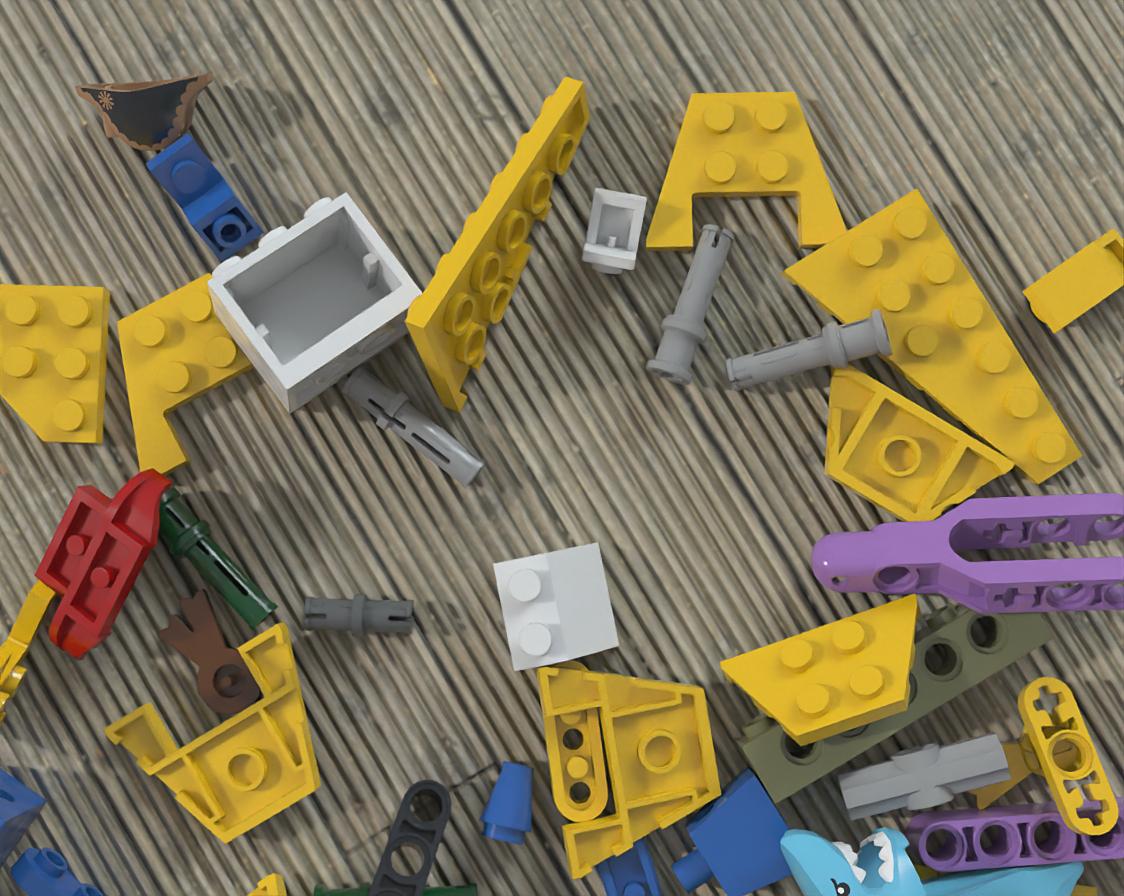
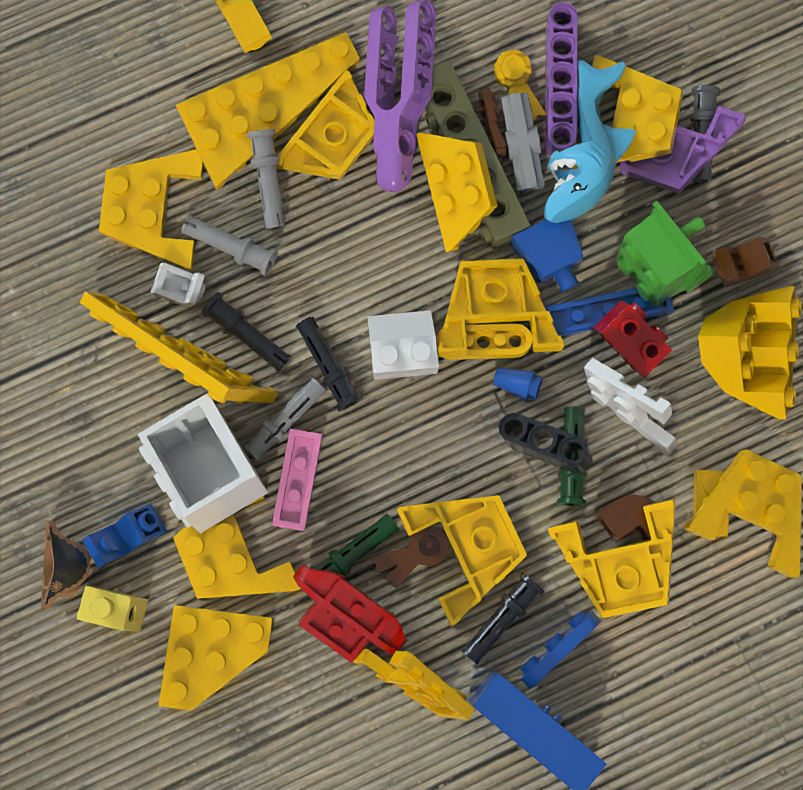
camera: 90 degrees left, 5 degrees down
(70, 773) = (510, 601): none -> black pin
(84, 185) = (112, 609): none -> light yellow torso
(316, 457) = (297, 480): none -> bright pink plate
(359, 615) = (396, 463): dark grey pin -> none
(490, 500) = (335, 376): none -> black pin
(562, 327) = (233, 323): none -> black pin
(965, 715) = (490, 113): none -> reddish brown piece
(1090, 764) = (506, 52): yellow beam -> none

